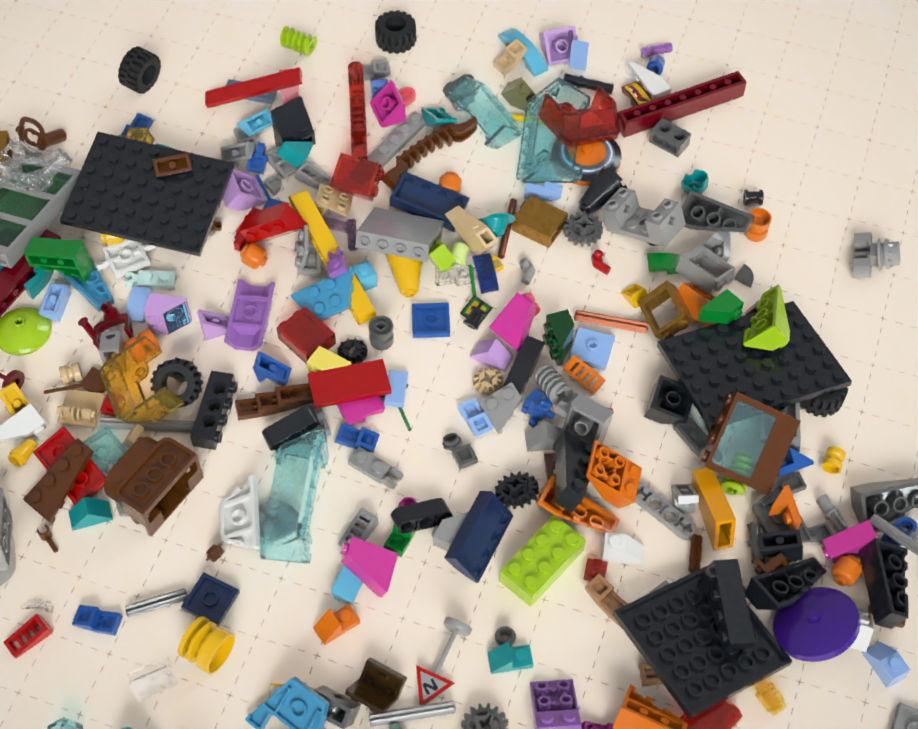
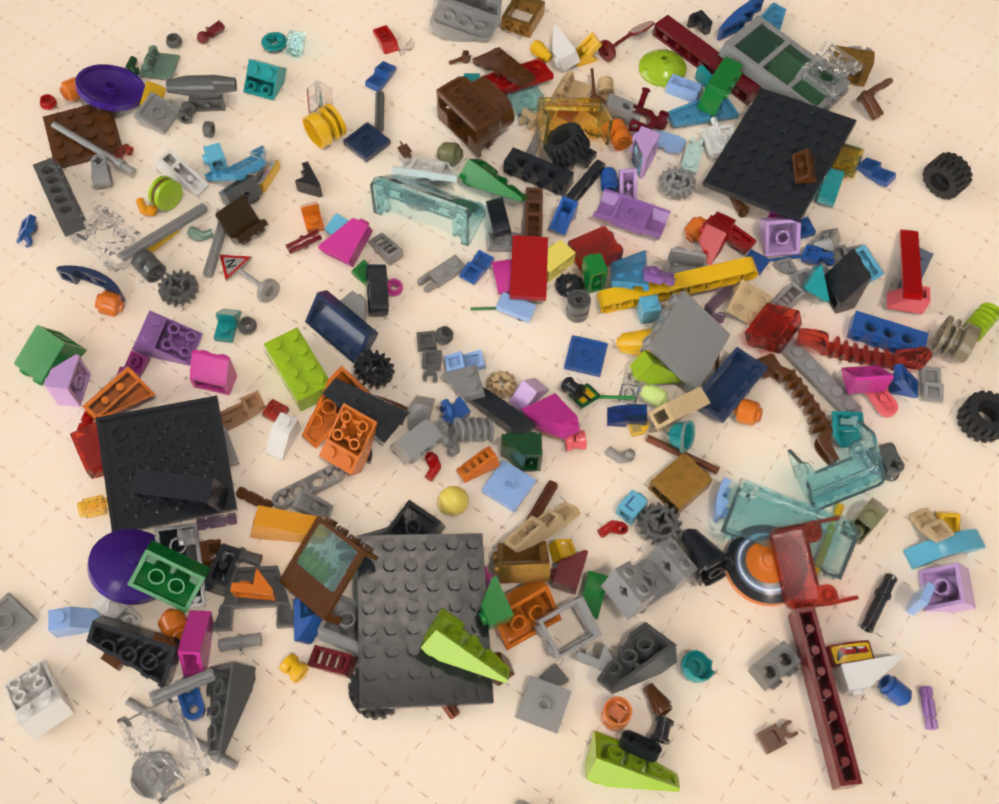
camera: 105 degrees right, 5 degrees up
(195, 283) = (677, 183): none -> light grey gear
(208, 342) = (609, 179): none -> blue brick
(208, 502) = (450, 152): none -> olive head
(221, 364) = (586, 181): none -> black beam
(240, 455) = (484, 176): none -> green wedge
(290, 637) = (308, 183): none -> black slope
(326, 52) = (958, 340): none -> dark tan wheel
(332, 102) = (884, 333): none -> blue brick
(341, 321) = (594, 272): none -> green slope
(377, 617) = (303, 241): none -> dark red pin
(488, 445) = (430, 362): none -> dark grey plate
(495, 50) = (951, 518): none -> yellow slope
(575, 250) = (631, 506): none -> medium azure brick
(581, 640) = (212, 372): none -> dark pink slope
(625, 387) = (453, 500): none -> light yellow hair
(626, 306) = (539, 529): none -> tan slope
(651, 277) = (569, 572): none -> dark red slope
(724, 131) = (774, 738): none -> reddish brown plate
(735, 200) = (657, 700): none -> reddish brown cone
(771, 273) = (543, 704): none -> light grey plate
(776, 206) = (640, 746): none -> black beam
(792, 215) = (614, 767): none -> lime wedge
(813, 576) = (168, 576): none -> green slope
(818, 423) = (345, 665): none -> dark red slope

